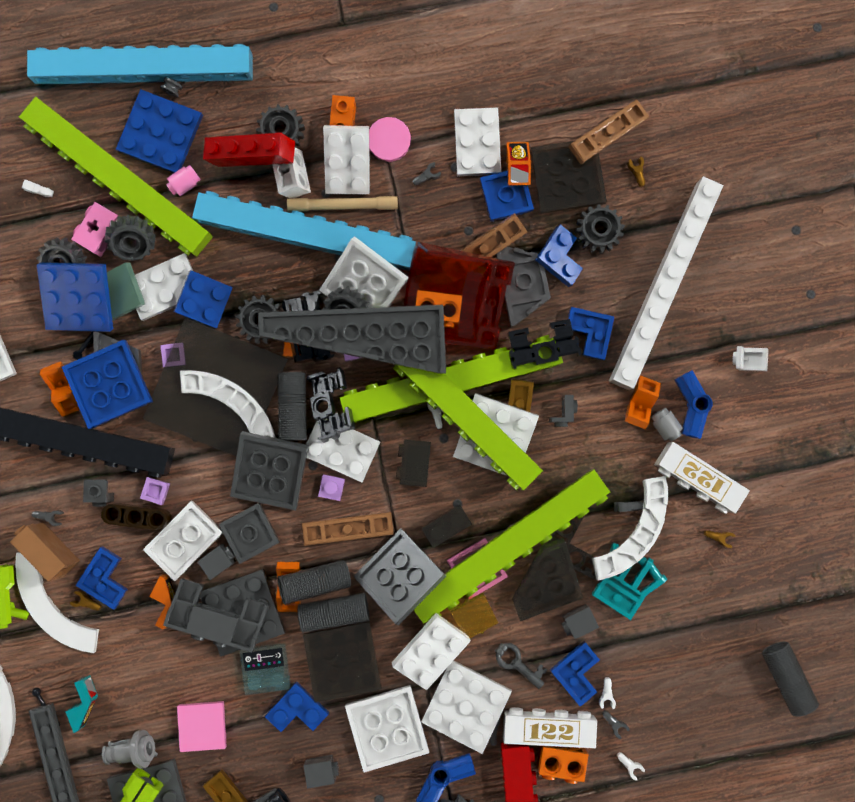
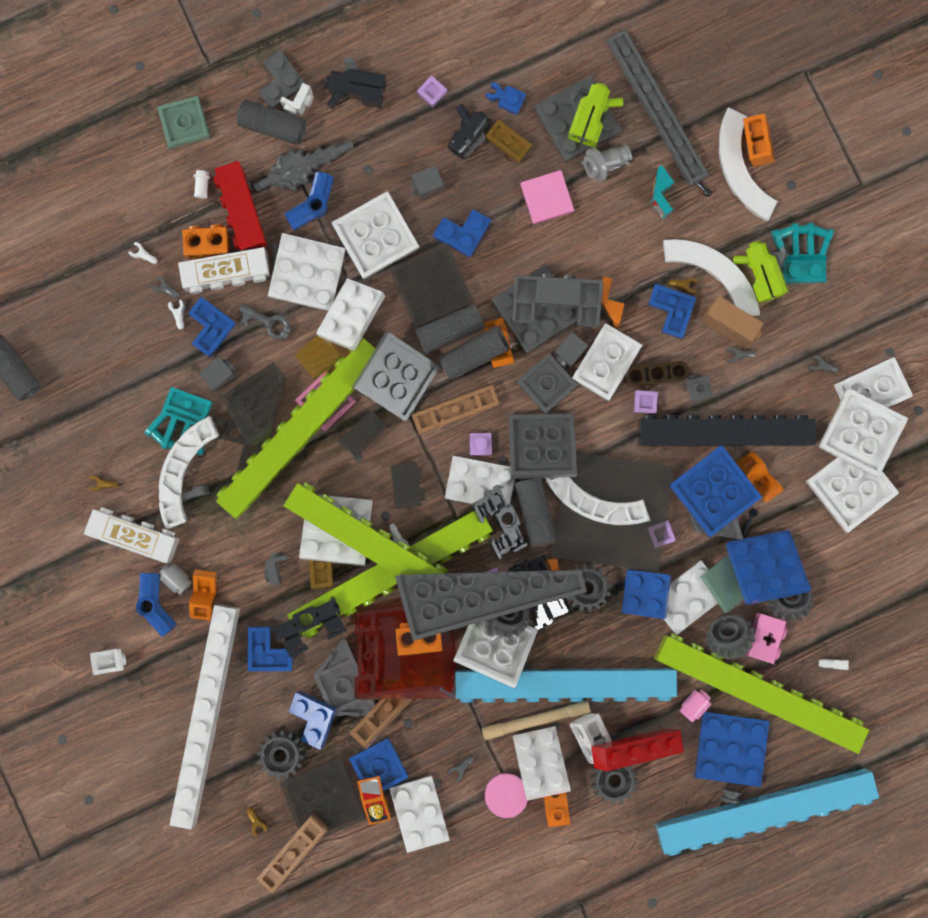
camera: 170 degrees right, 0 degrees up
(265, 669) = (501, 262): clear light blue plate -> none

